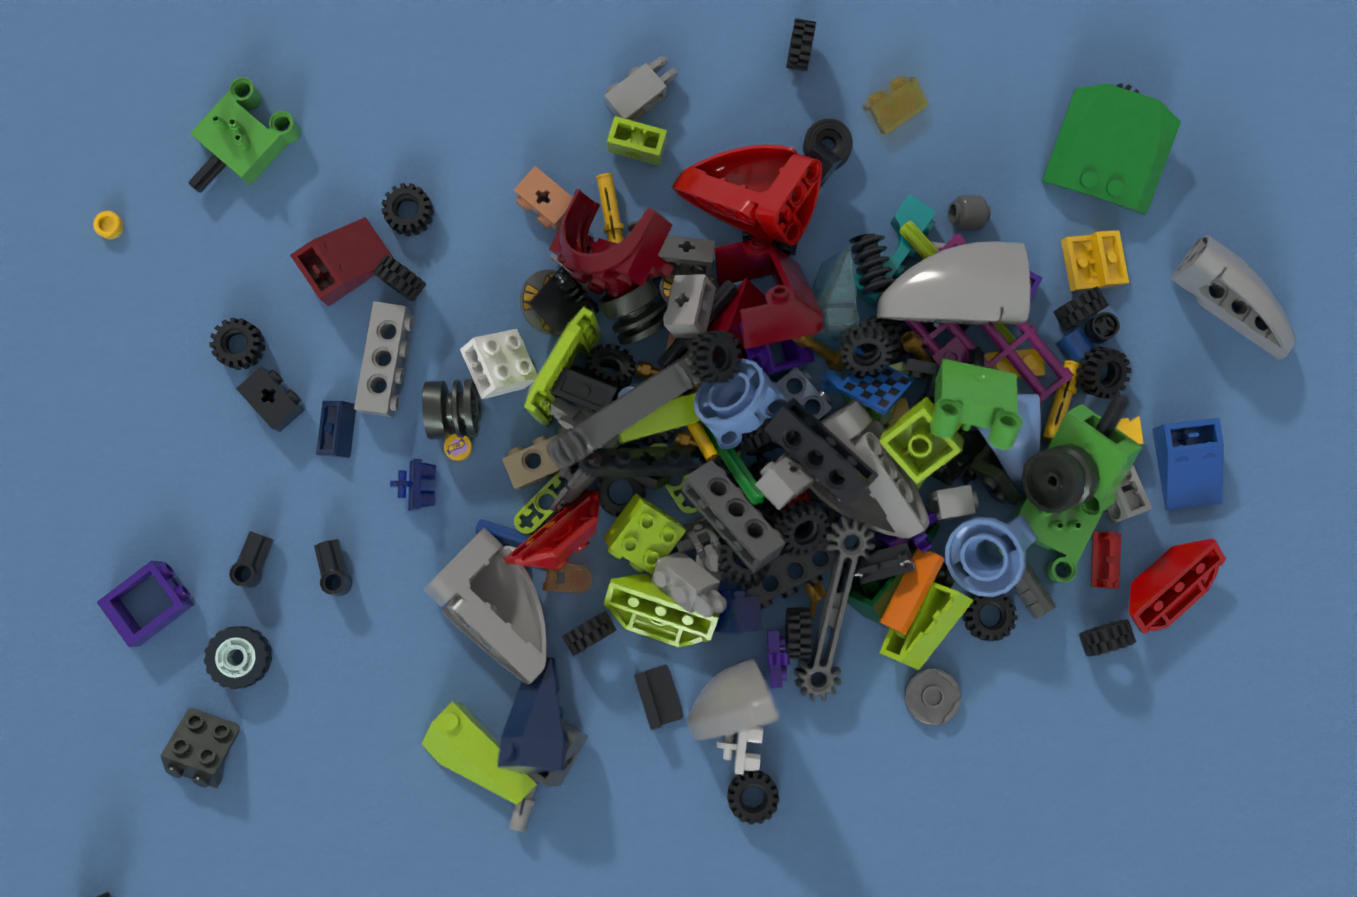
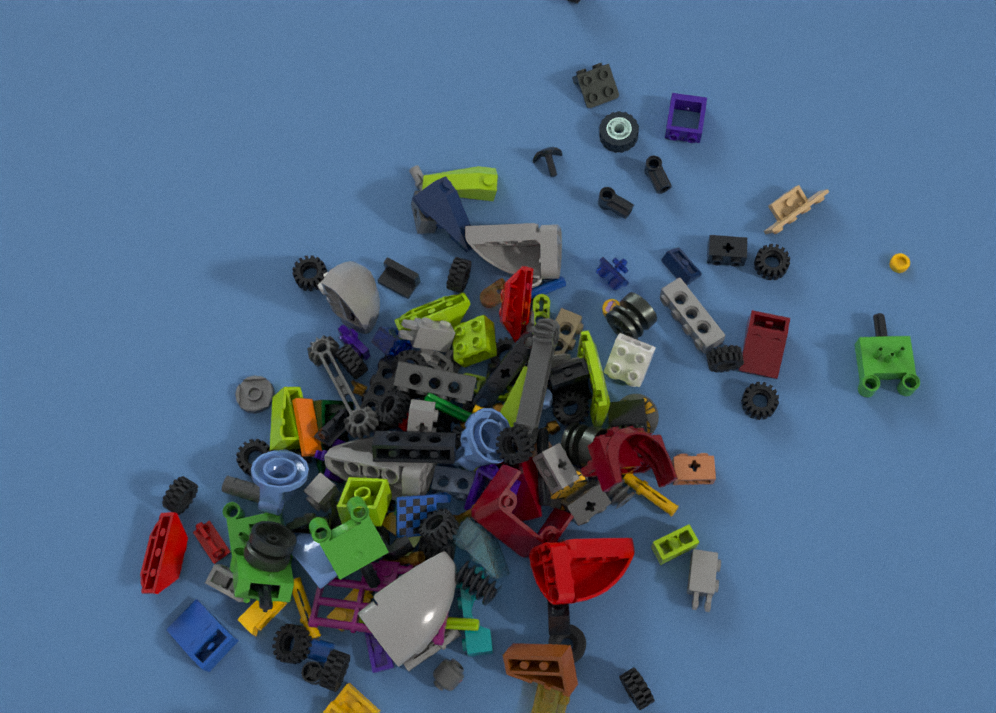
camera: 140 degrees right, 15 degrees down
(149, 385) = (790, 205): none -> tan bracket
(346, 700) = (547, 153): none -> black plant
(872, 138) = (544, 664): none -> dark orange wedge

